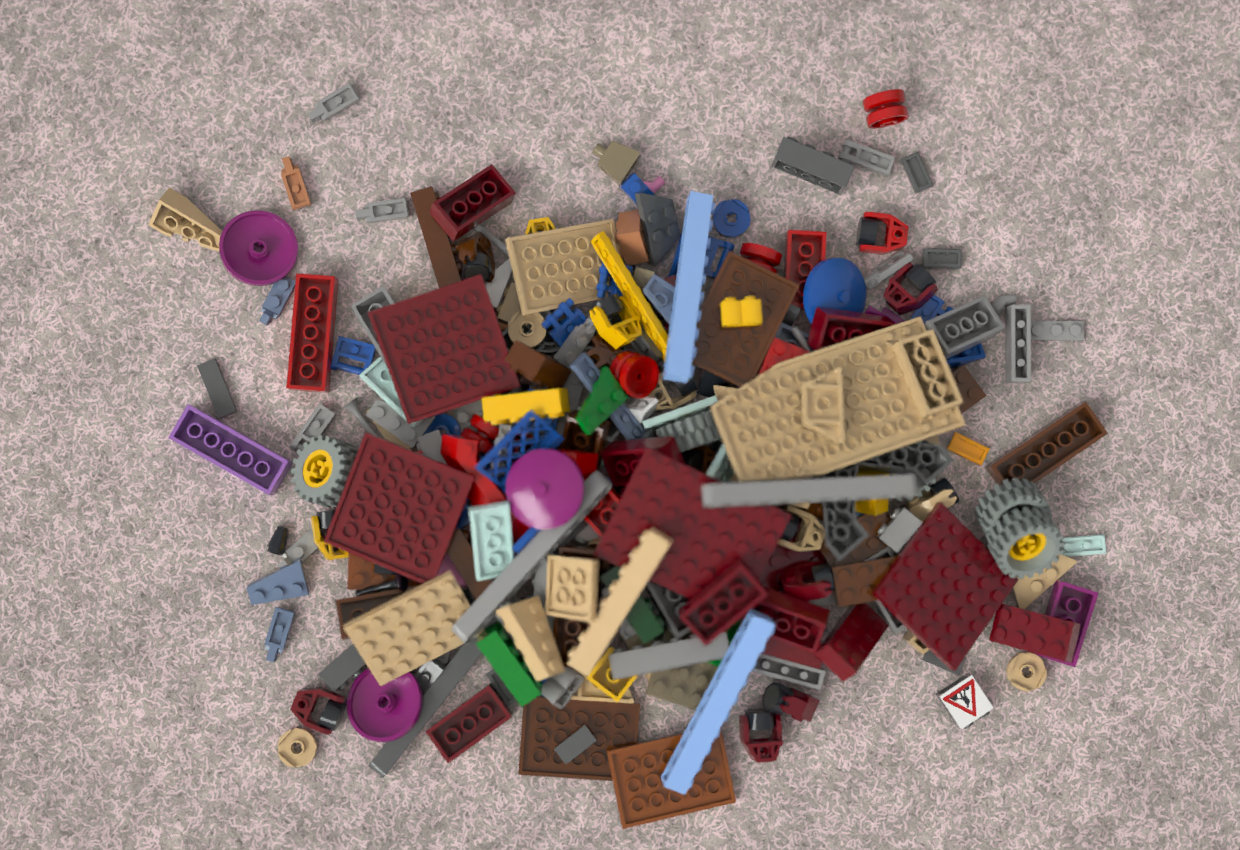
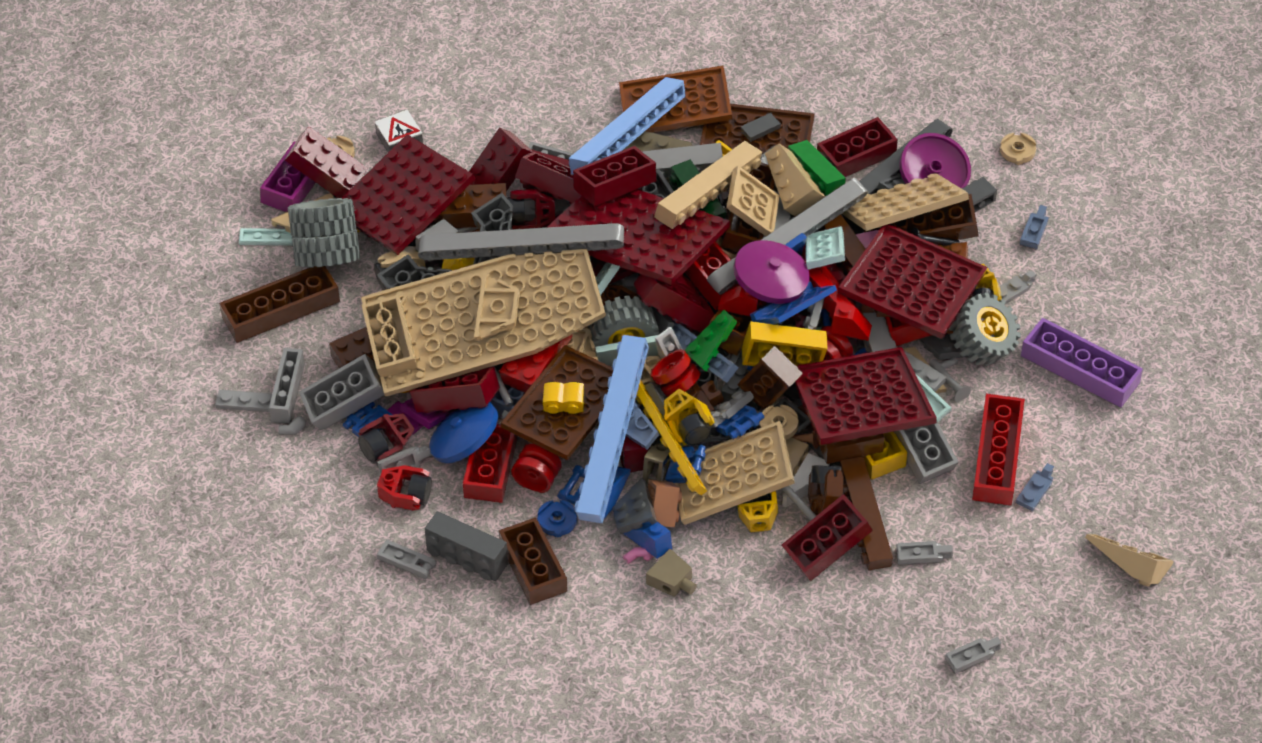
camera: 170 degrees left, 35 degrees down
(217, 388) = (1098, 419): dark grey tile -> none
(258, 248) = (1054, 524): magenta dish -> none
(278, 541) = (1036, 291): black cone -> none
(280, 585) = (1035, 259): sand blue wing -> none
(295, 185) = (1016, 583): nougat hinge -> none
(315, 426) = (1000, 376): light grey plate -> none
(331, 714) = (1009, 174): dark red piece -> none
(353, 350) = (959, 437): blue plate -> none
(747, 159) = (533, 561): none -> reddish brown brick
(761, 720) = (586, 121): dark red piece -> none
(783, 700) = (561, 135): piece -> none
(885, 108) = (379, 589): red wheel -> none
(916, 172) = (355, 544): dark grey tile -> none
(941, 258) = (346, 466): dark grey plate -> none
(968, 448) = (350, 315): light orange tile -> none

